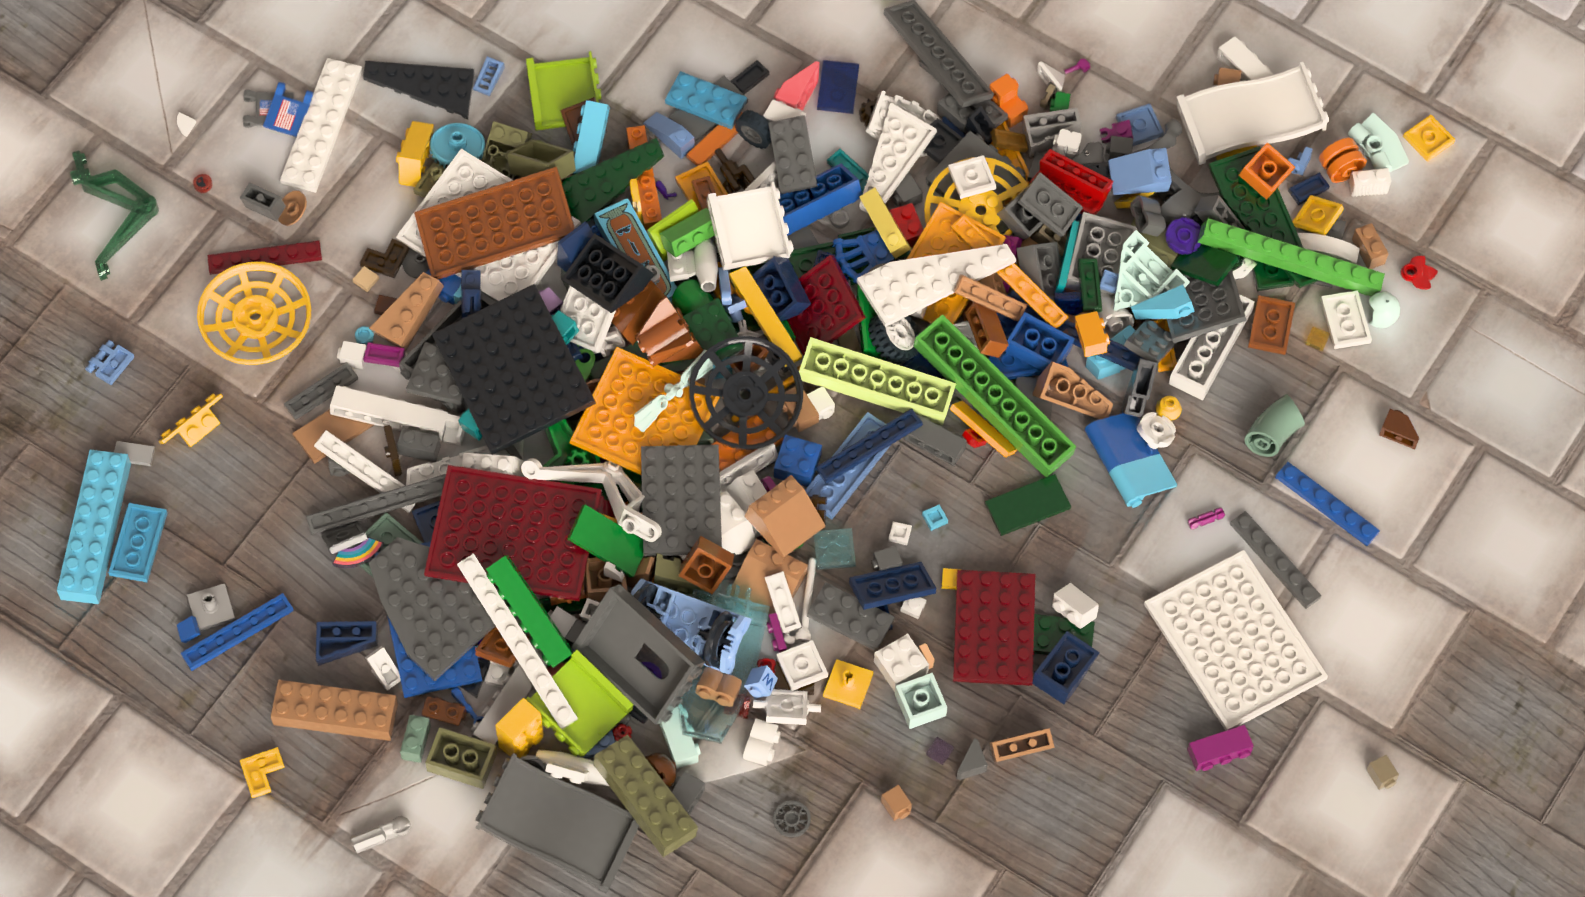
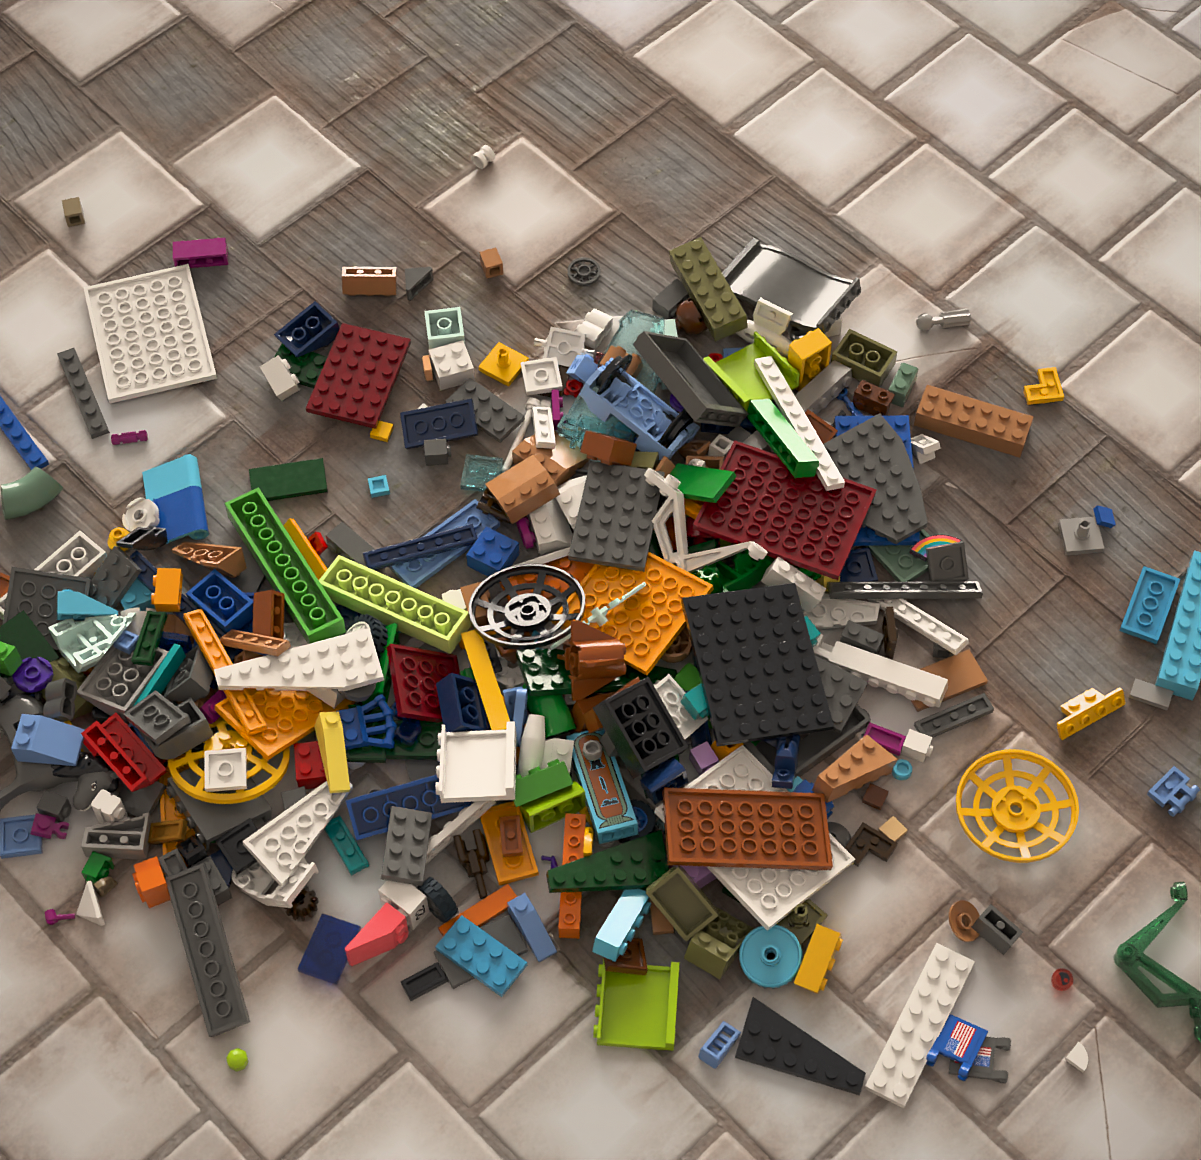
camera: 165 degrees left, 5 degrees down
(237, 632) = (1057, 506): blue plate -> none
(276, 255) = (999, 877): dark red plate -> none
(343, 639) = (956, 476): dark blue wedge -> none
(900, 533) = (415, 479): white tile -> none
(940, 751) = (440, 298): plate -> none

